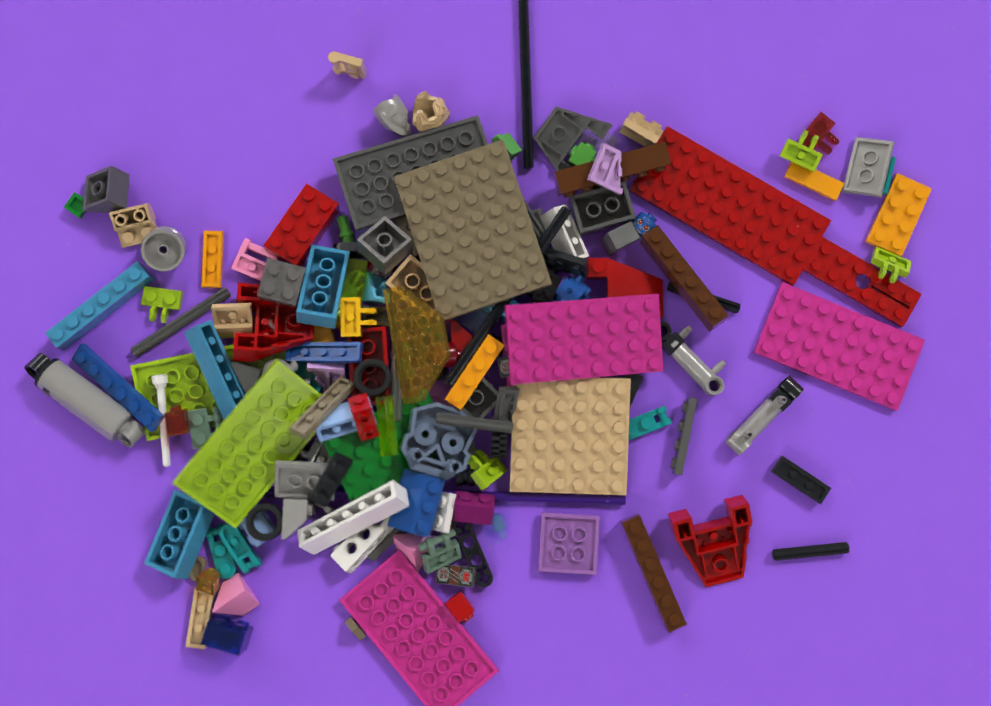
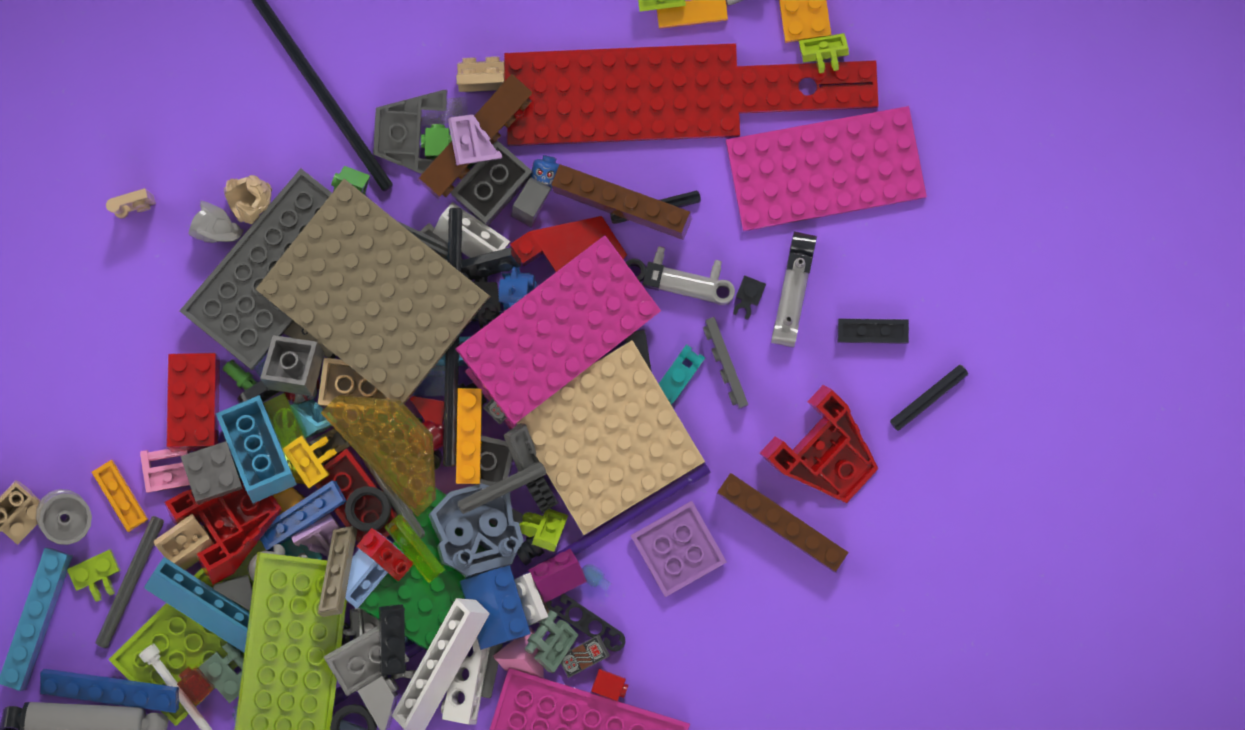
camera: 30 degrees left, 0 degrees up
(730, 398) = (750, 293): none -> black plate

